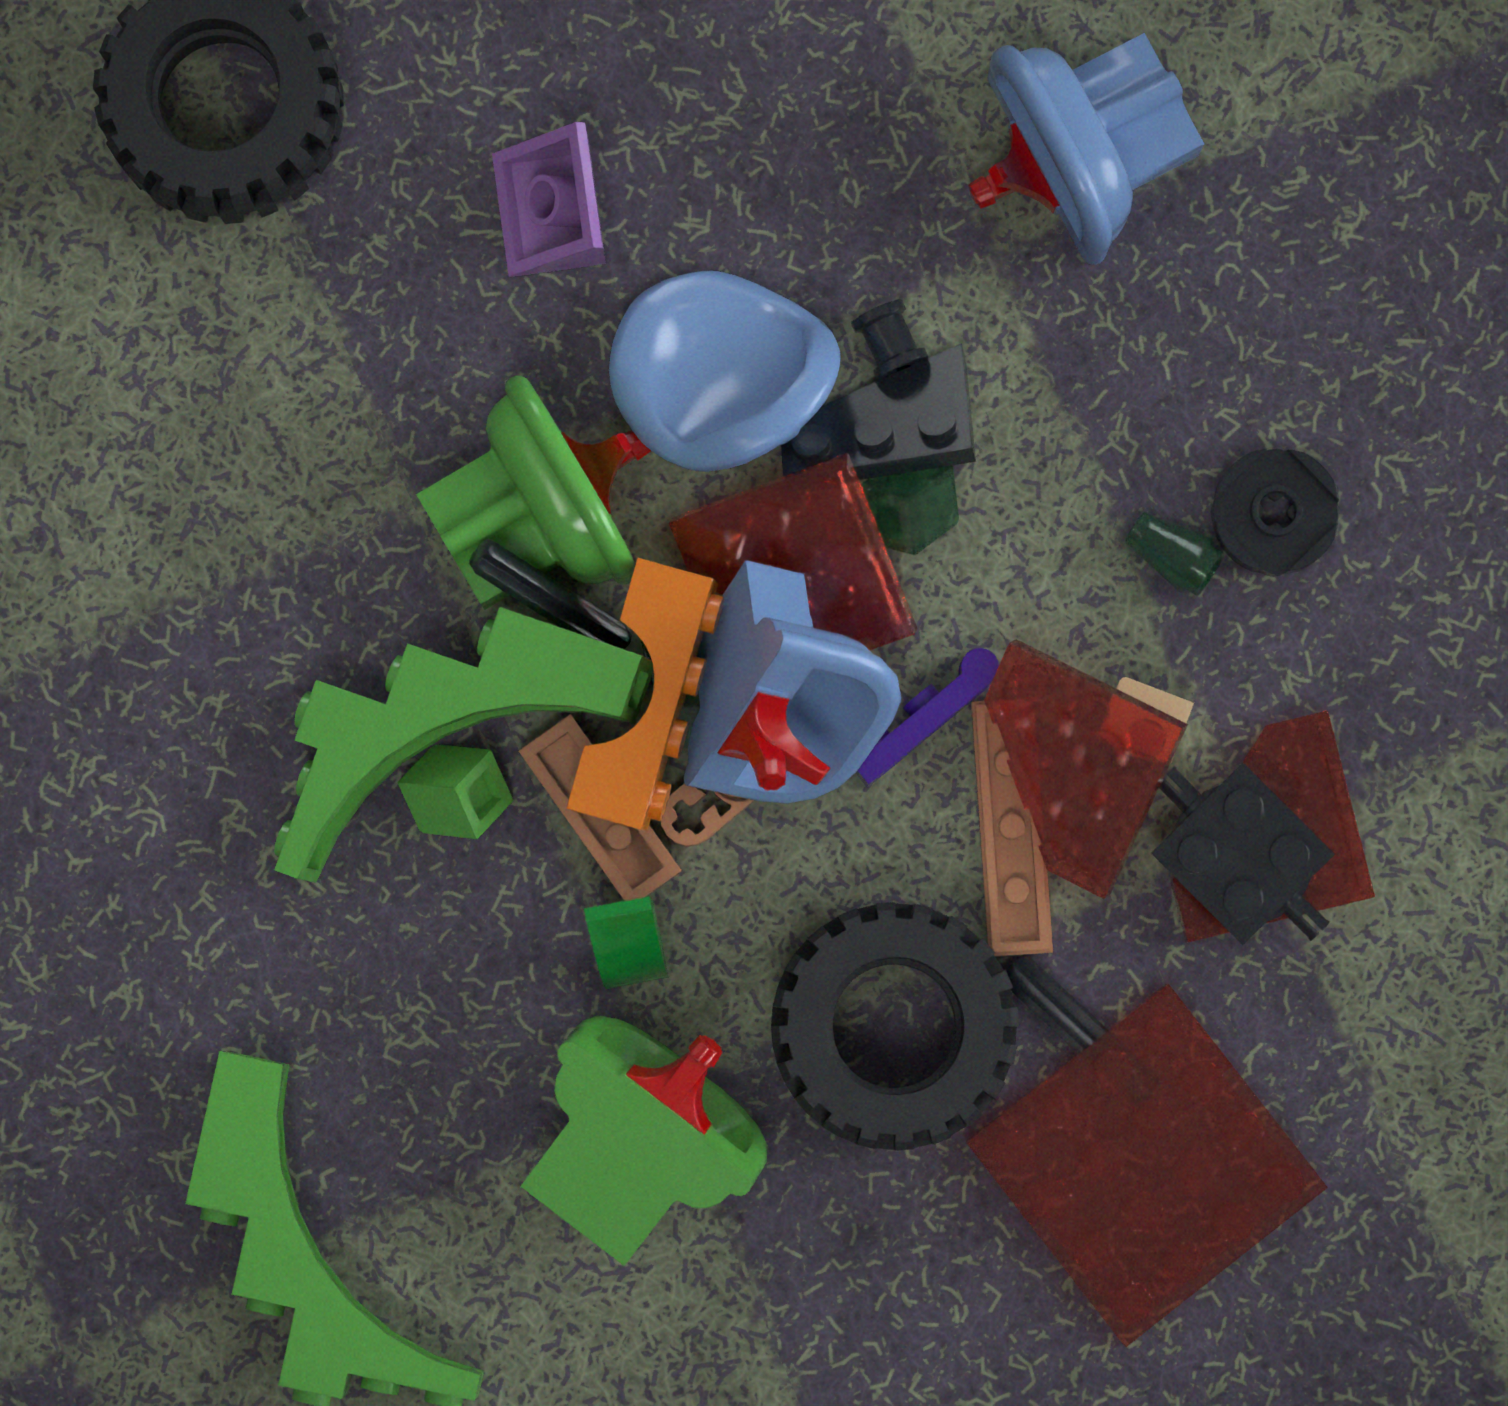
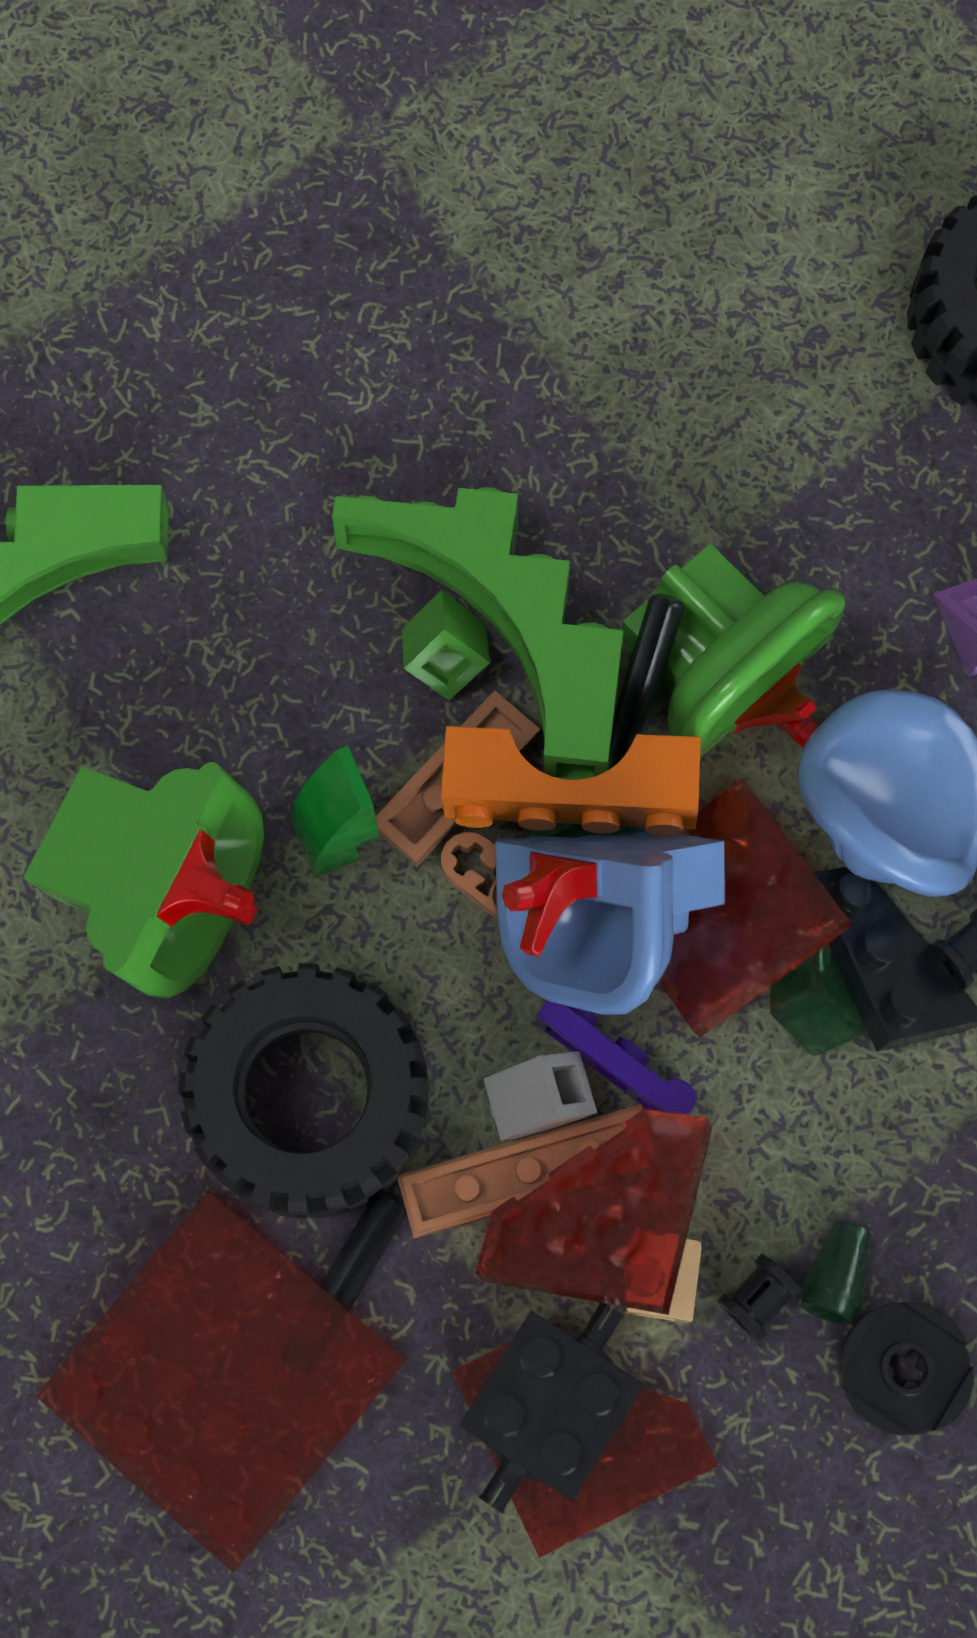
camera: 75 degrees right, 10 degrees down
(946, 798) = (539, 1095): none -> light grey brick
(1183, 614) = (760, 1297): none -> black bush

